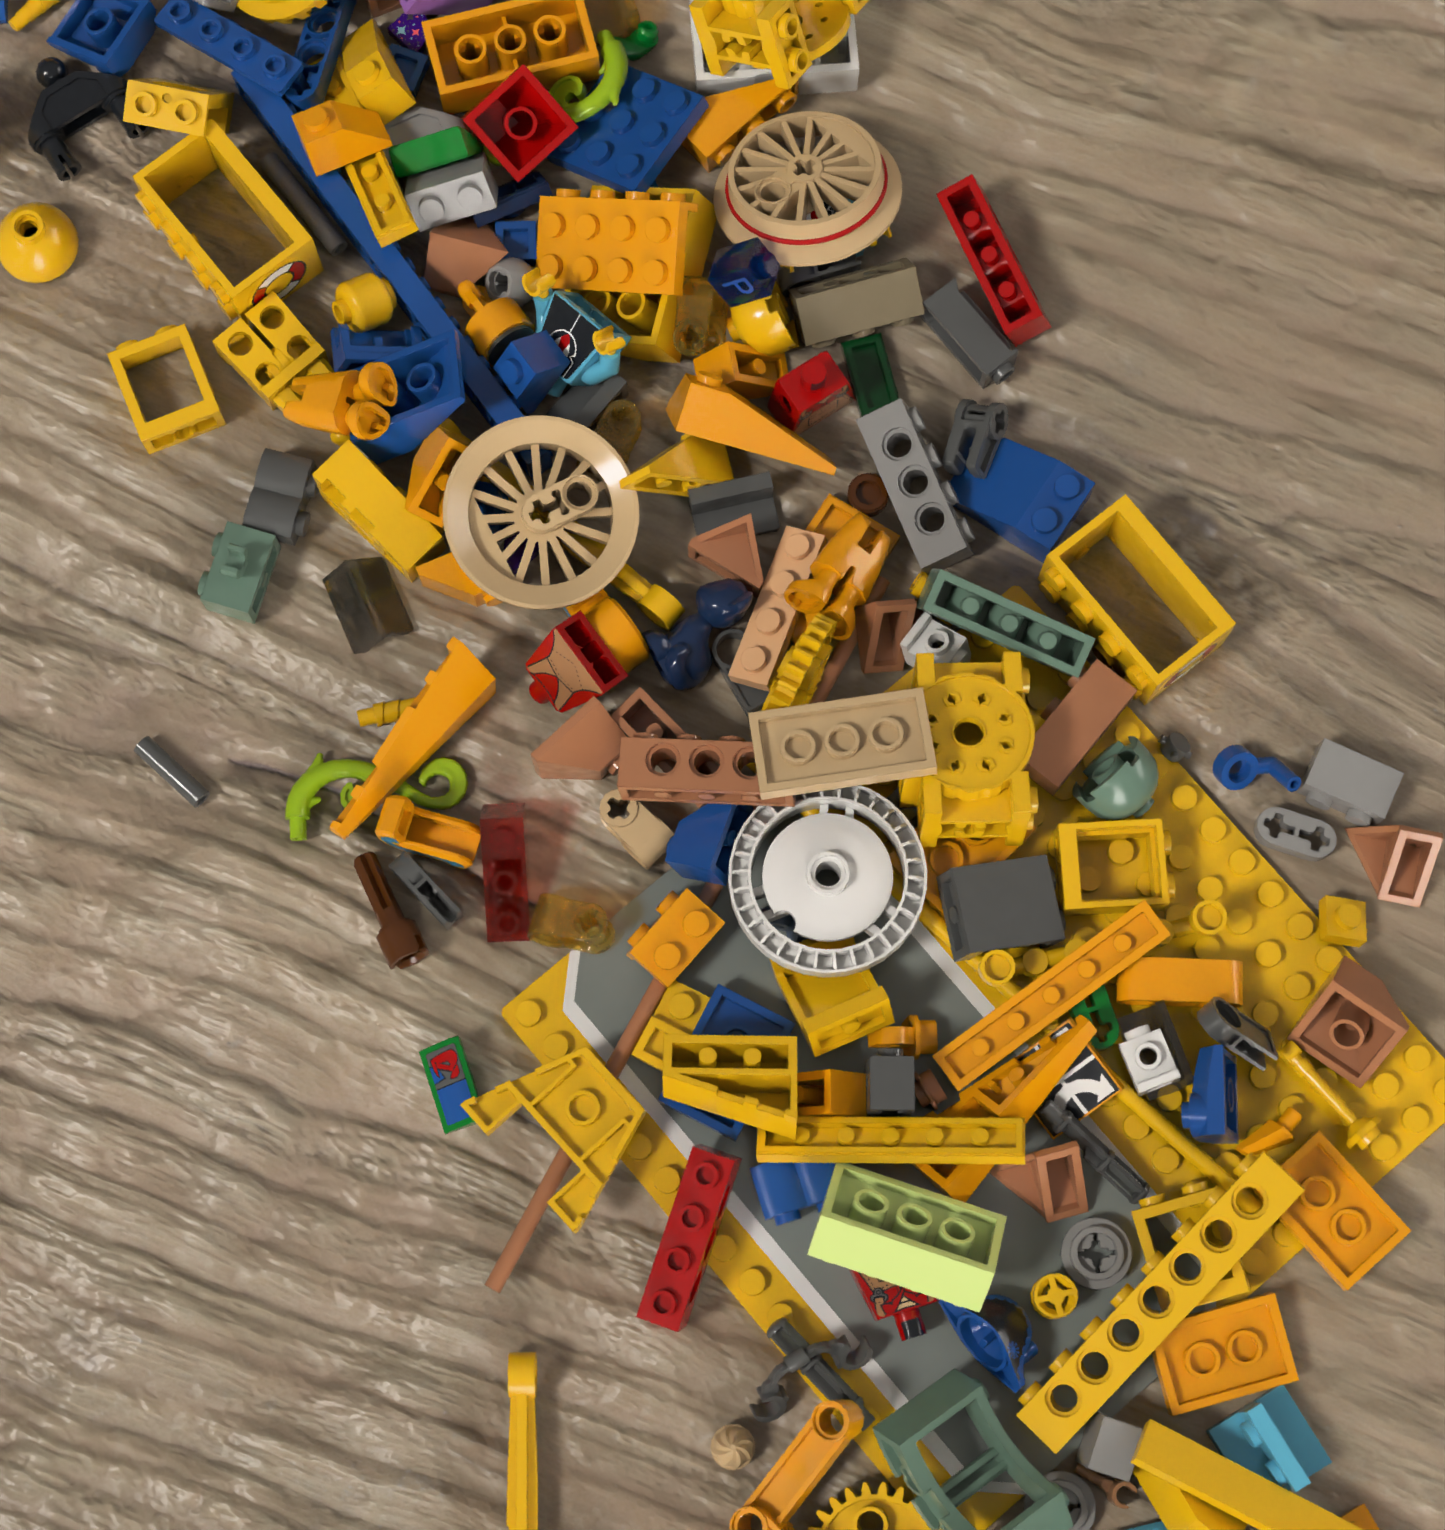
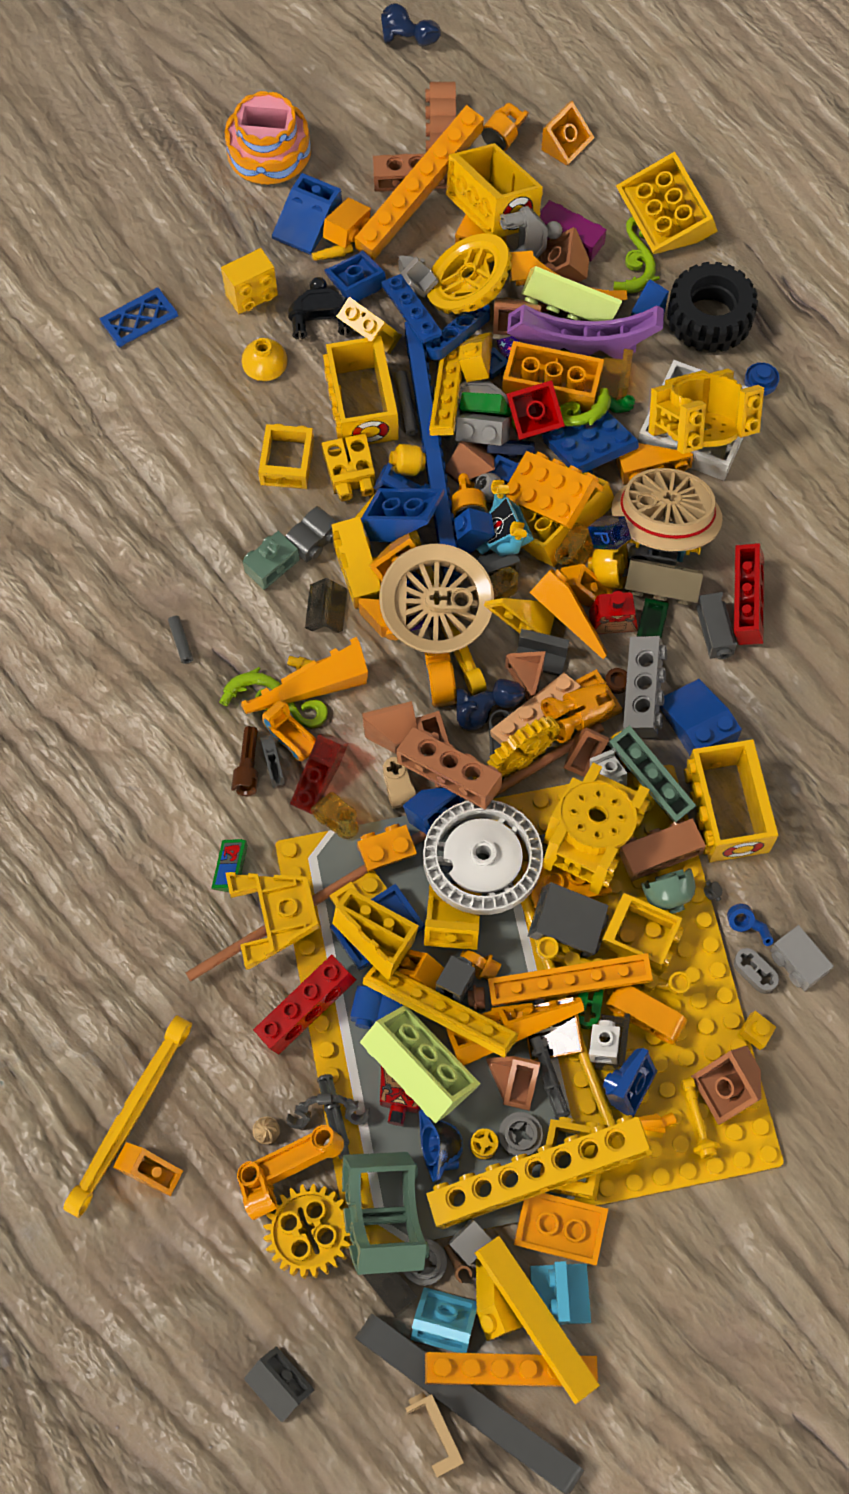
camera: 30 degrees right, 10 degrees down
(339, 134) = (439, 372): light orange slope -> none
(345, 401) = (369, 498): light orange piece -> none
(572, 665) = (411, 682): red torso -> none
(842, 743) = (525, 783): tan plate -> none
(975, 437) = (689, 678): dark grey piece -> none
(1237, 1032) = (663, 1053): dark grey piece -> none
(1338, 1213) = (667, 1183): light orange plate -> none
(1397, 860) = (806, 1012): nougat slope -> none

